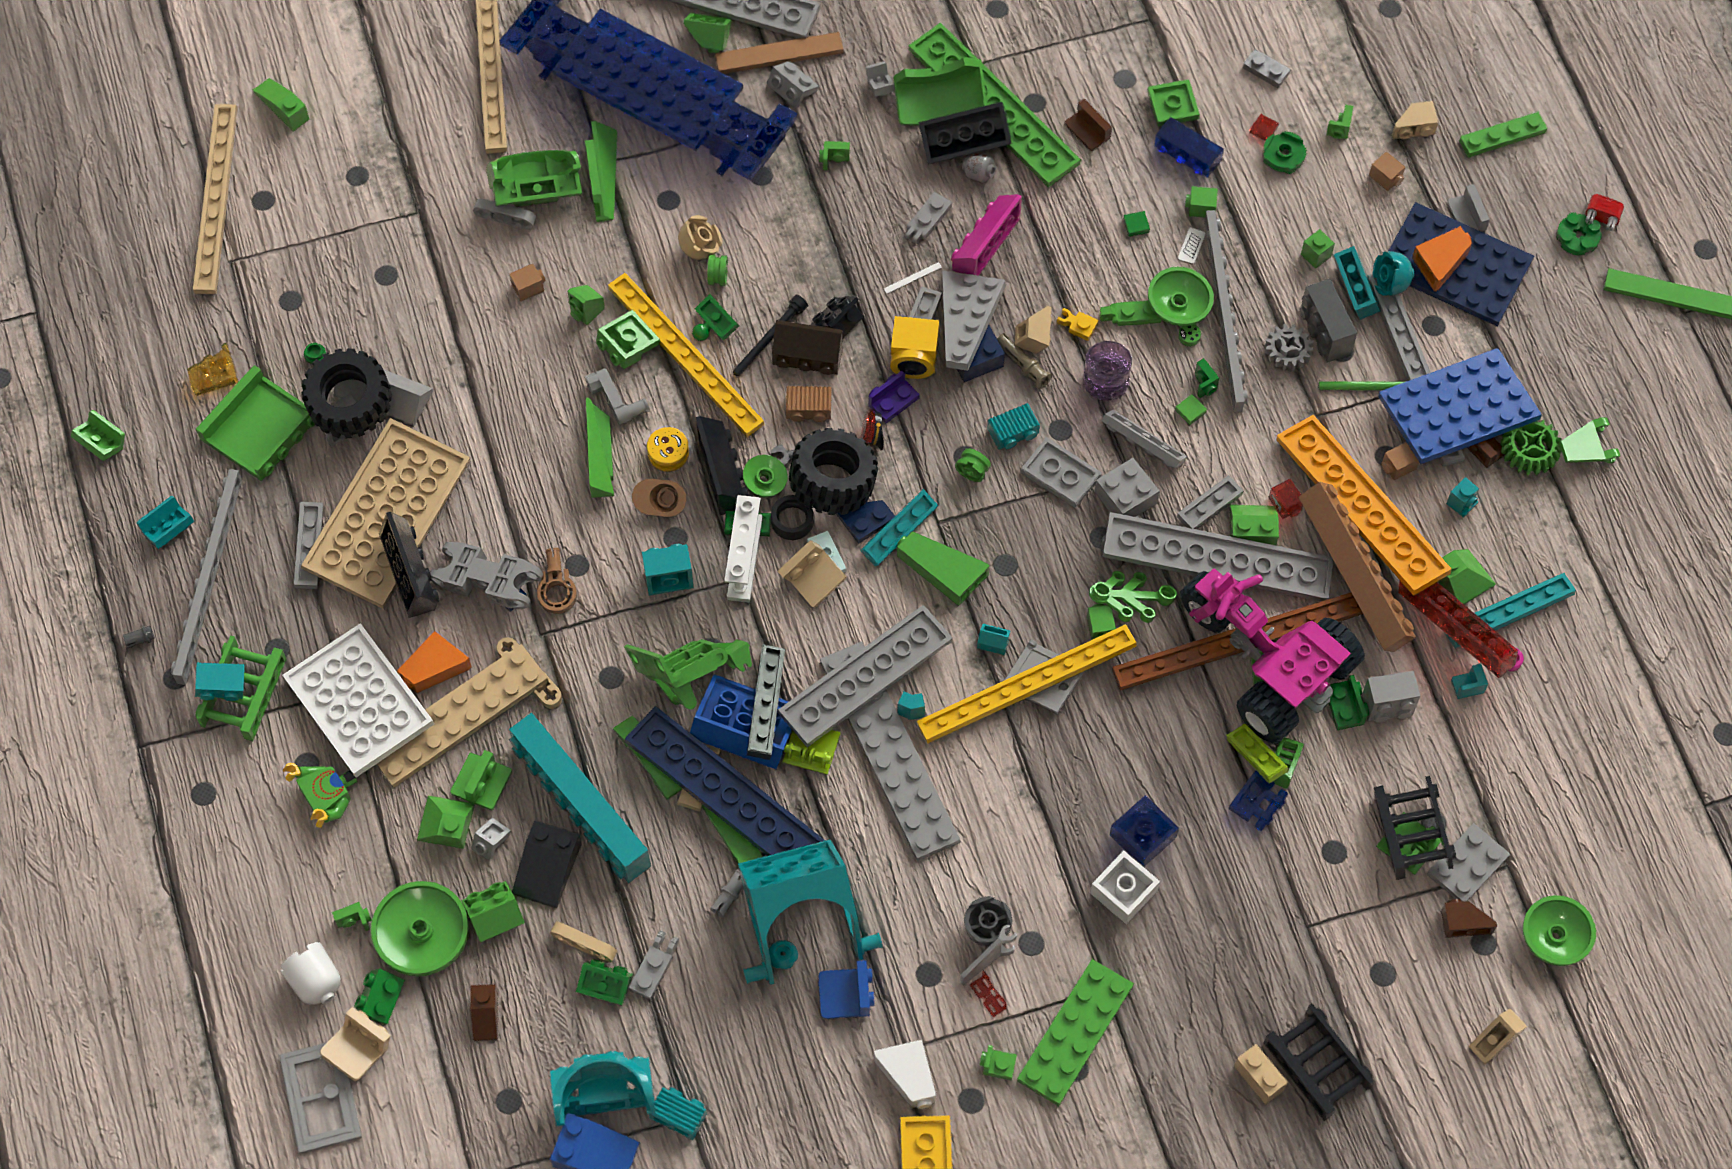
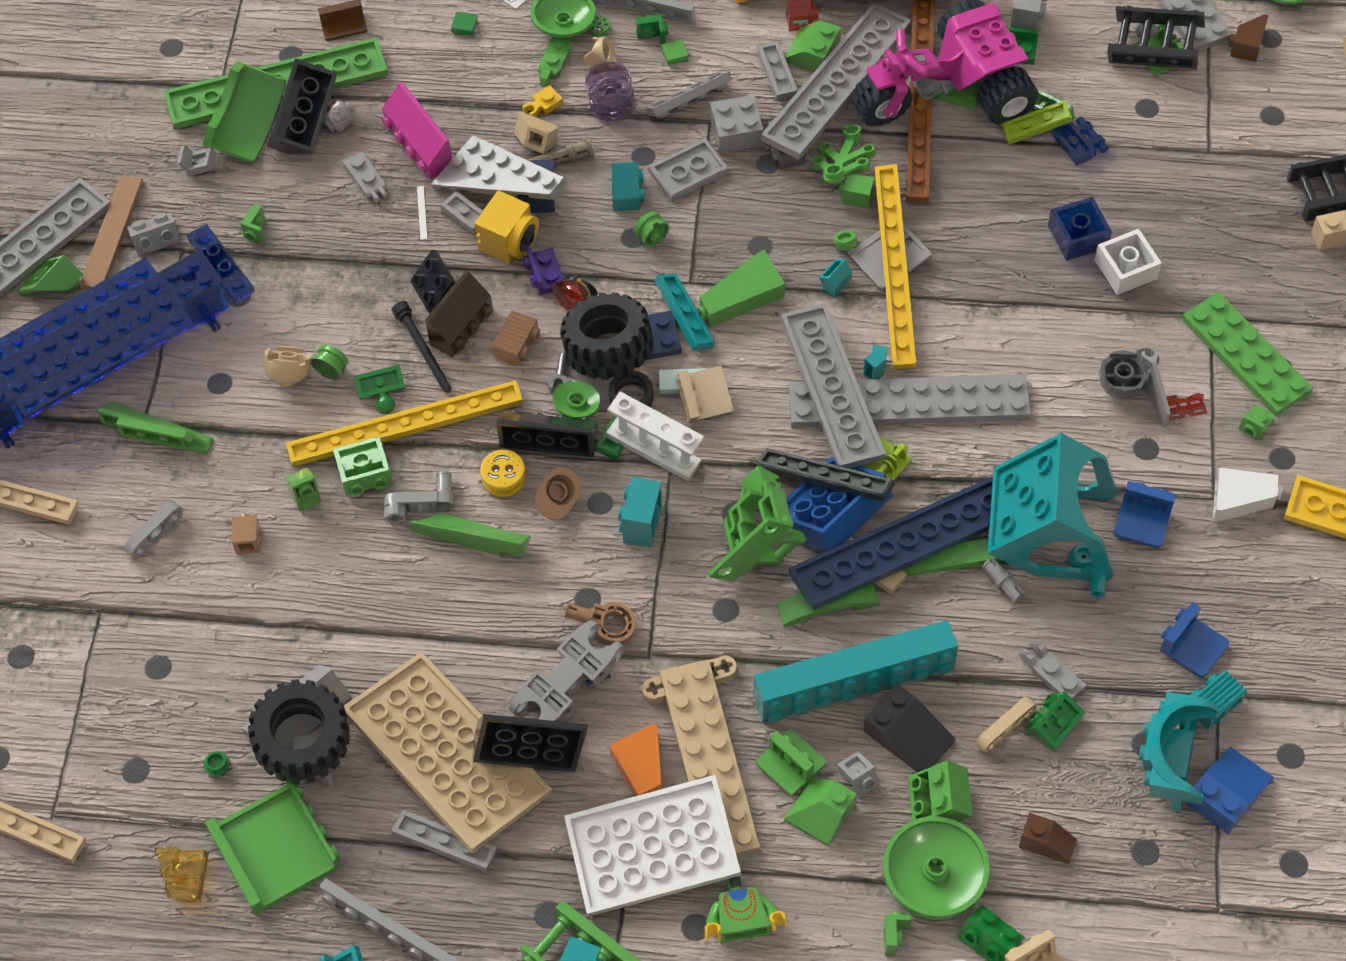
camera: 65 degrees left, 5 degrees down
(534, 177) = (133, 478): bright green piece -> none
(730, 1075) = (1193, 642): none -> blue bracket
(1040, 633) = (845, 240): none -> bright green tile
(1146, 359) = (596, 55): none -> tan piece

